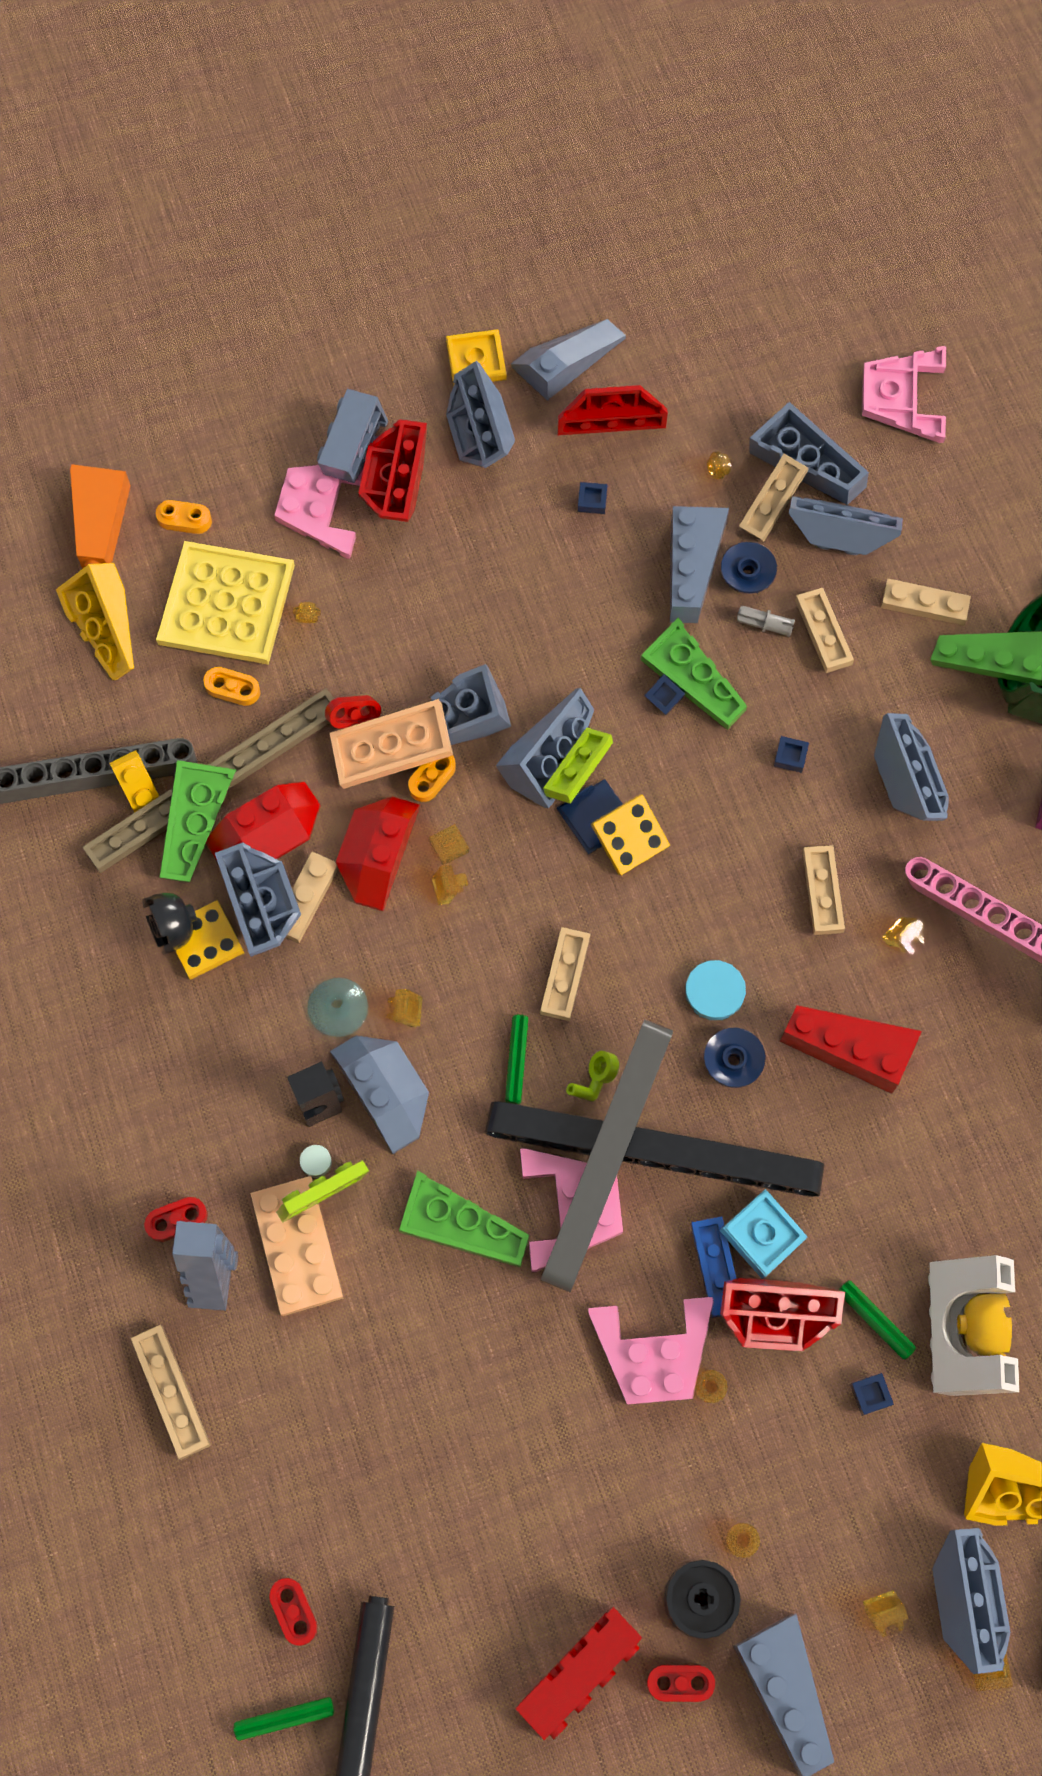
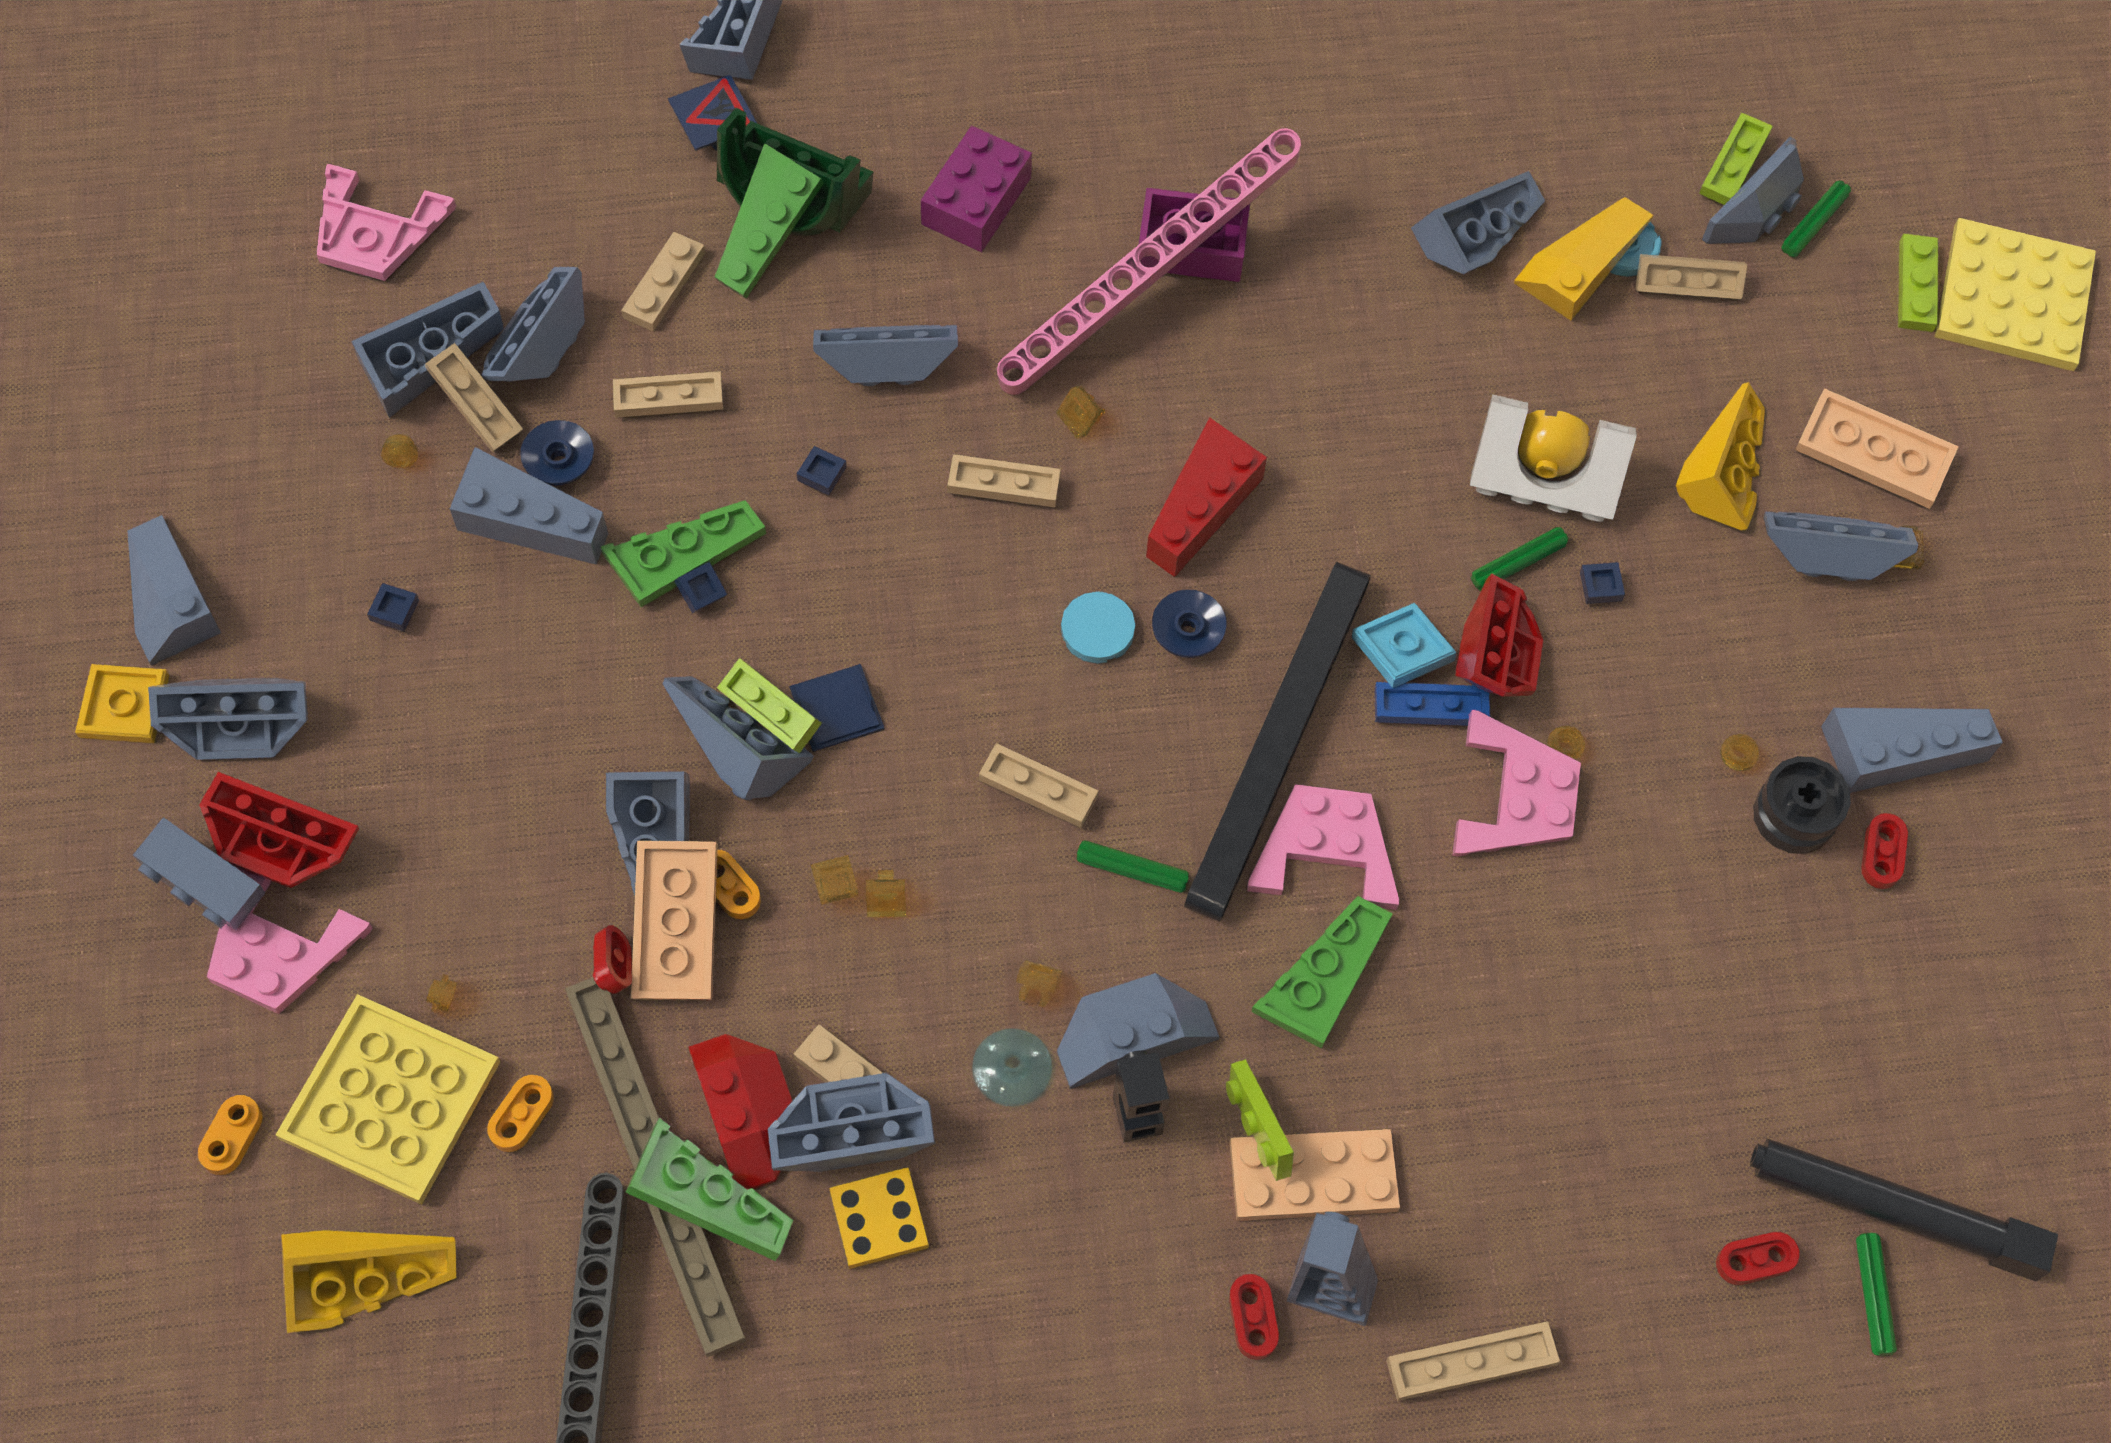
camera: 80 degrees left, 5 degrees down
(98, 511) = (185, 1251): orange slope -> none
(134, 780) = (633, 1259): yellow plate -> none
(169, 921) = (855, 1245): black cylinder -> none
(315, 1161) = (1211, 1131): light aqua tile -> none
(375, 849) = (812, 971): red wedge -> none
(578, 1673) = (1863, 947): red wedge -> none
(602, 1069) = (1177, 777): lime plate -> none
(606, 1156) = (1287, 778): dark grey beam -> none
(612, 411) = (275, 550): red wedge -> none
(630, 834) = (878, 668): yellow tile -> none
(765, 620) = (635, 453): light grey axle -> none
(885, 1611) = (1834, 628): clear yellow tile -> none

